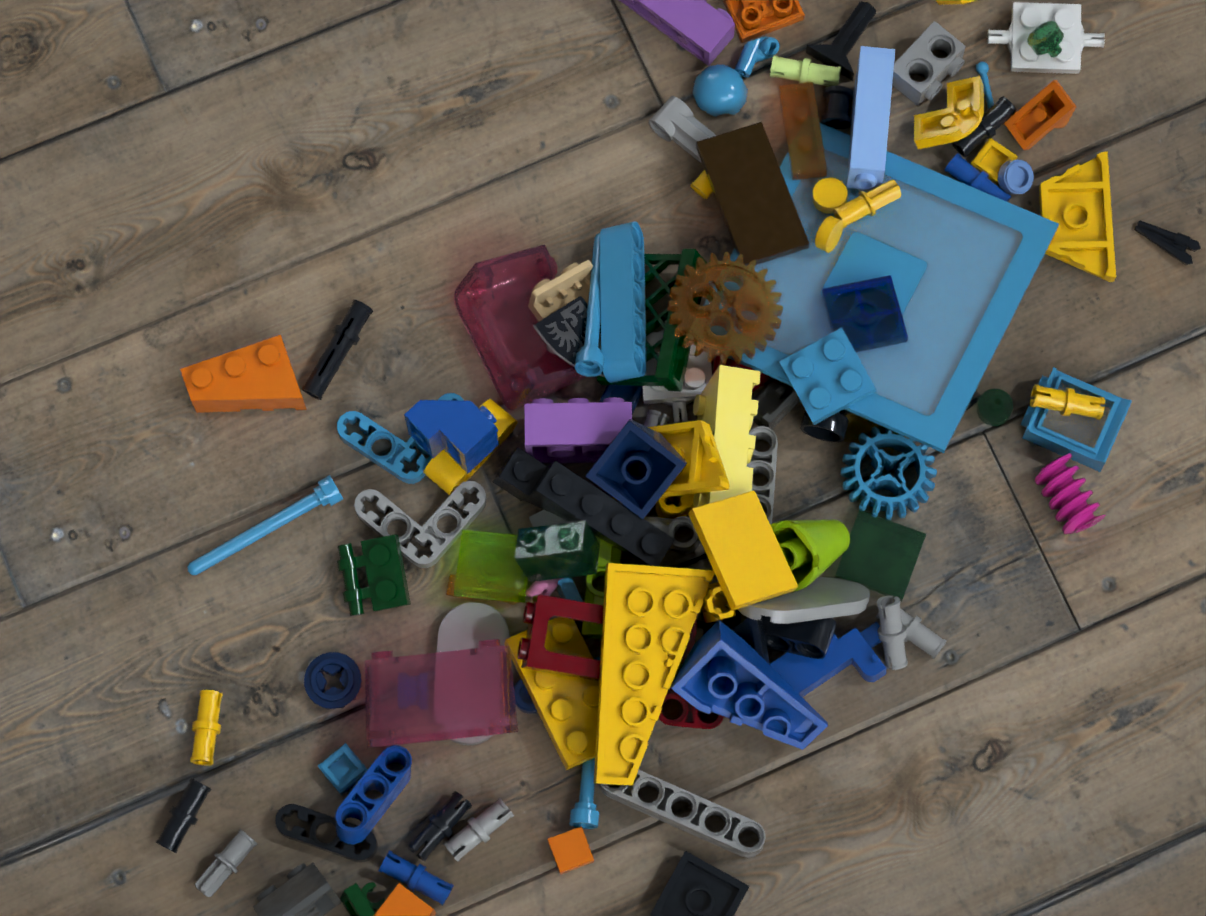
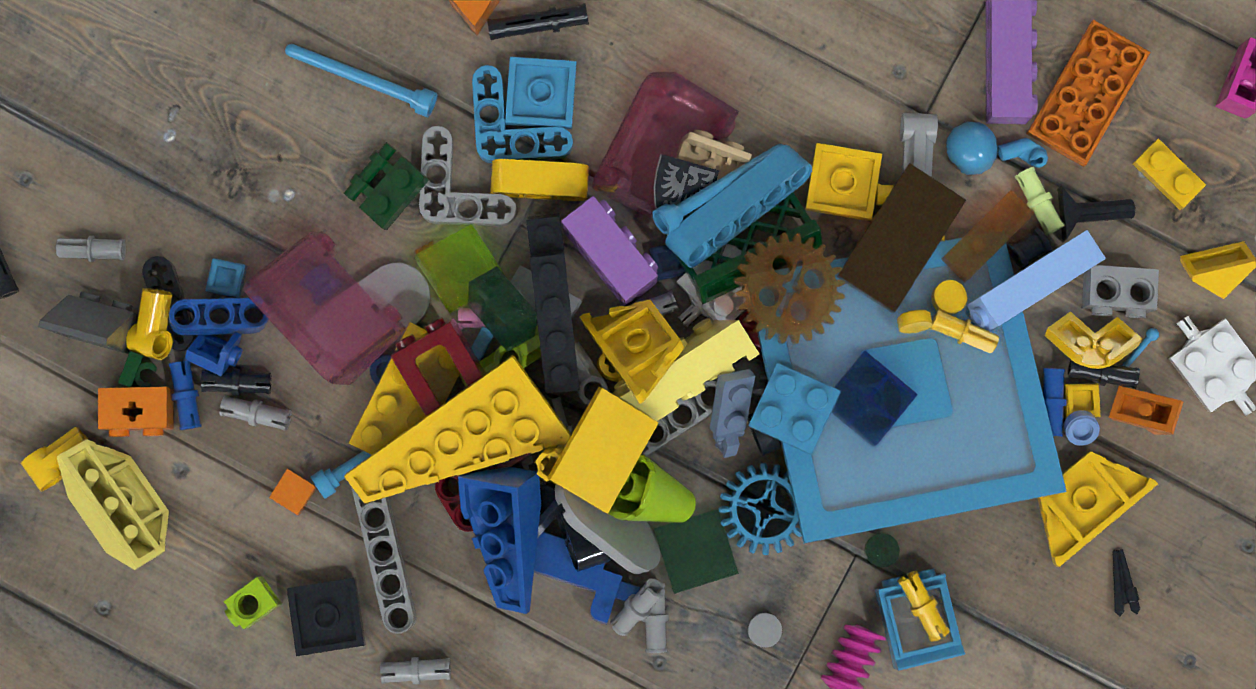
camera: 45 degrees right, 10 degrees up
(183, 815) = (101, 190): black pin -> none
(206, 727) = (178, 154): yellow pin -> none
(331, 664) = (274, 207): dark blue gear -> none
(341, 862) = (149, 333): none -> yellow piece
(396, 387) = (540, 92): none -> dark azure plate
(402, 824) = (215, 353): none -> blue bracket
(456, 427) = (535, 162): blue piece -> none
(637, 467) = (609, 320): dark blue slope -> none
(668, 209) = (843, 182): none -> yellow plate
(787, 433) = (731, 409): none -> sand blue hinge
(803, 861) = (415, 670): none -> light grey pin
(989, 549) = (764, 630): none -> light grey tile
(1046, 39) = (1212, 368): clear green tile -> none

